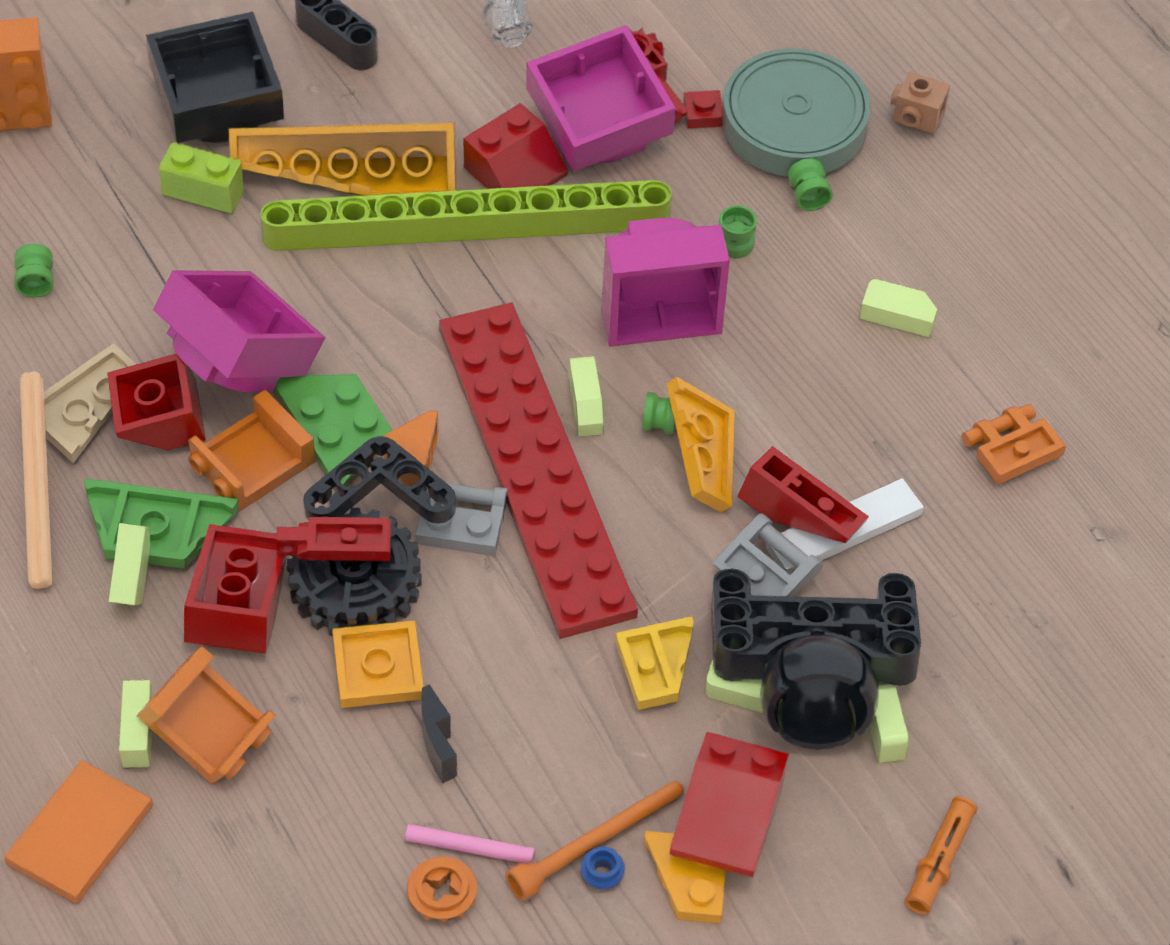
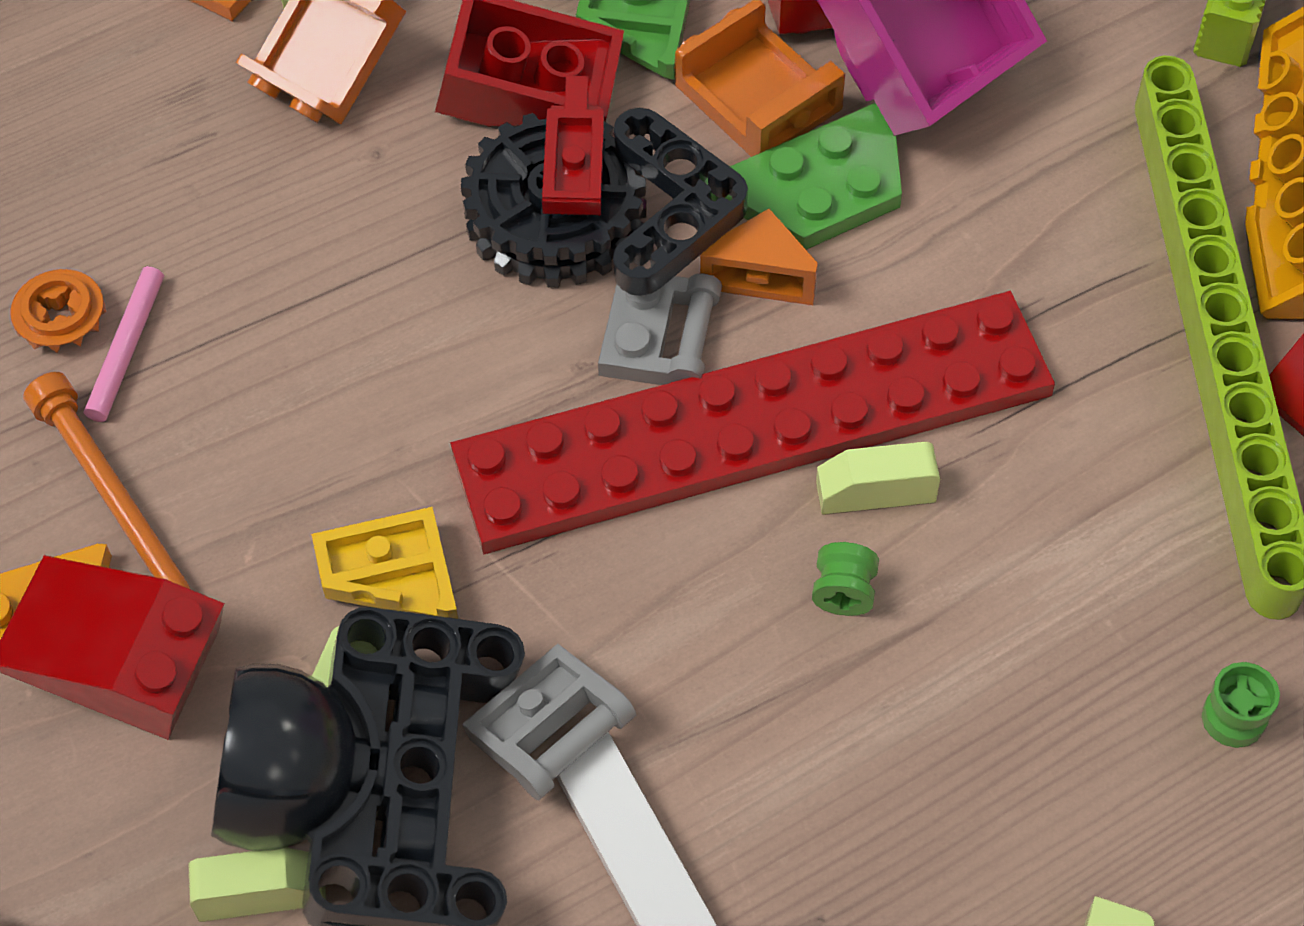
camera: 95 degrees right, 5 degrees up
(378, 664) = (407, 230): light orange plate -> none
(436, 731) = (304, 287): black slope -> none
(606, 858) = (54, 481): blue plate -> none
(664, 281) = (1078, 553): dark pink container -> none
(706, 443) = (781, 636): light orange wing -> none
(798, 498) = (657, 769): red slope -> none

